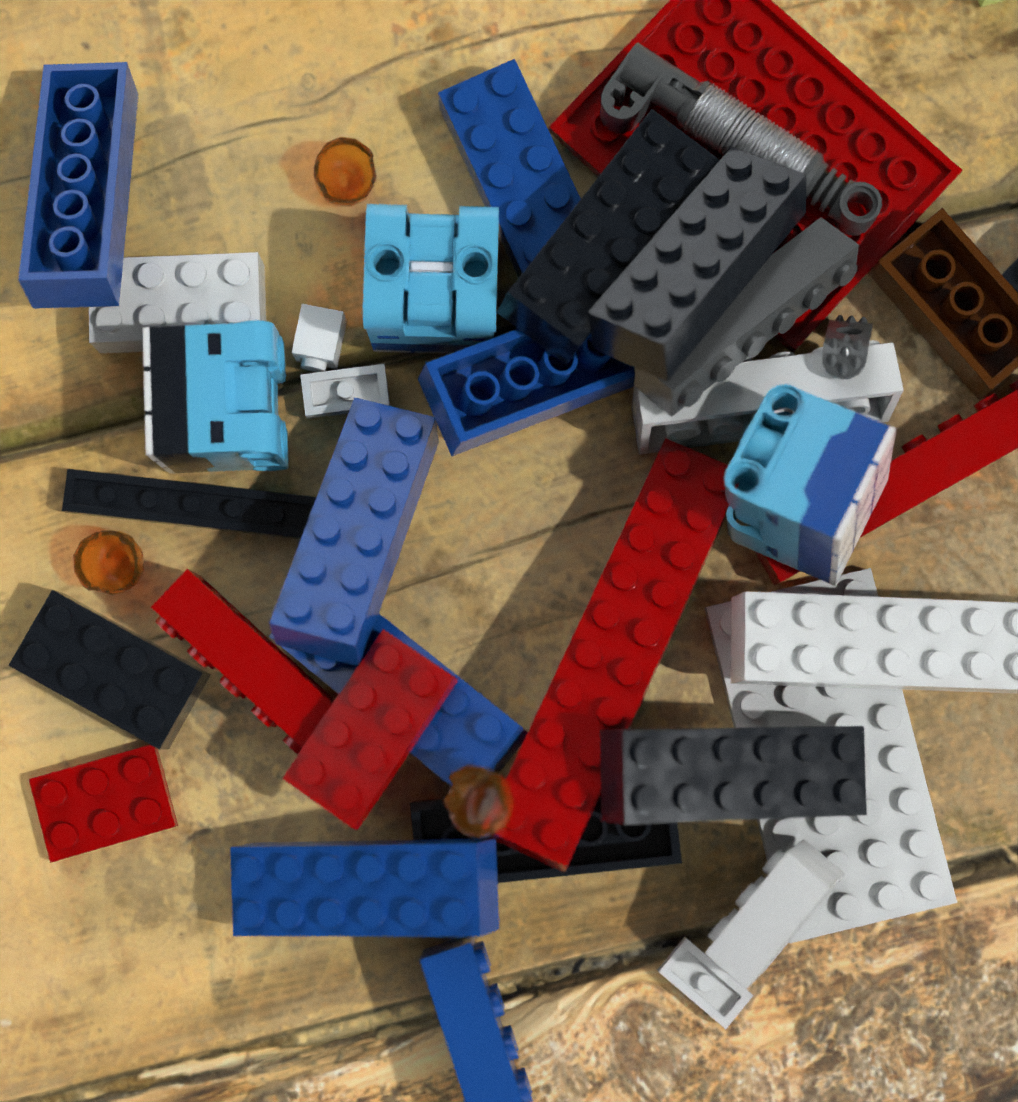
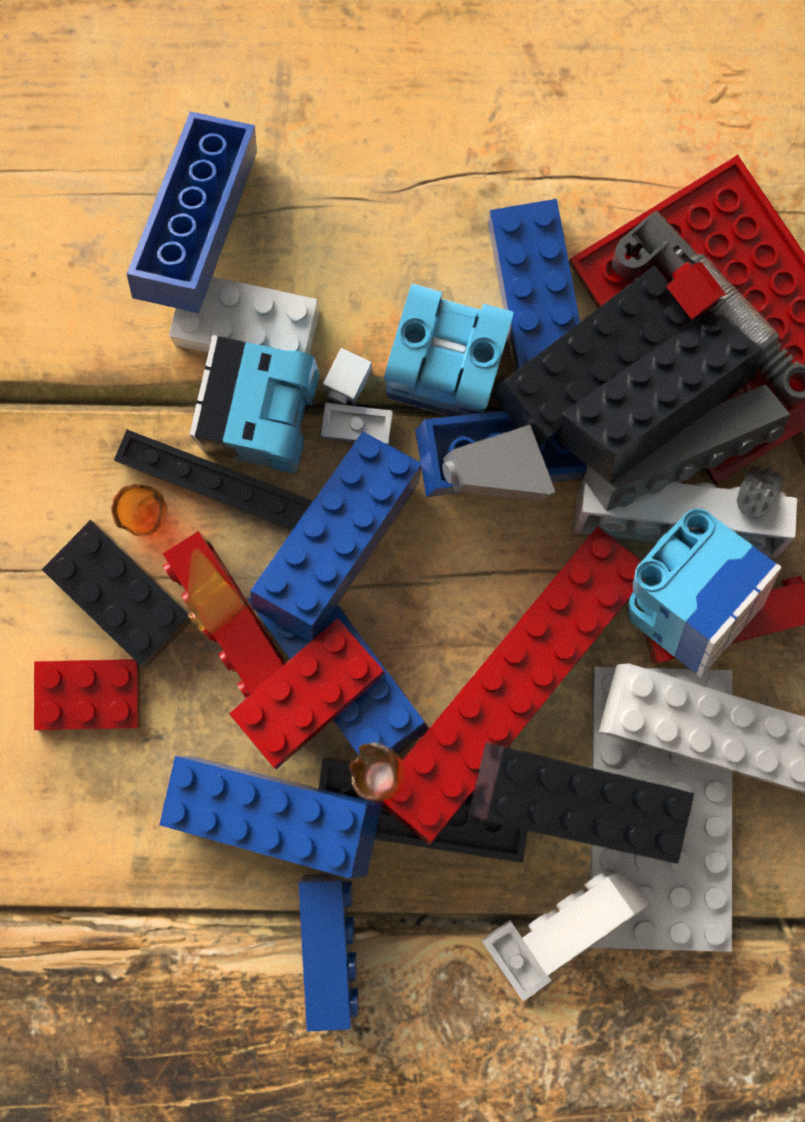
camera: 20 degrees right, 0 degrees up
(222, 642) = (210, 595): none -> clear yellow slope
(344, 172) = (401, 253): clear orange hair -> none
(531, 397) = (500, 467): none -> light grey slope
(708, 124) = (695, 289): none -> red brick

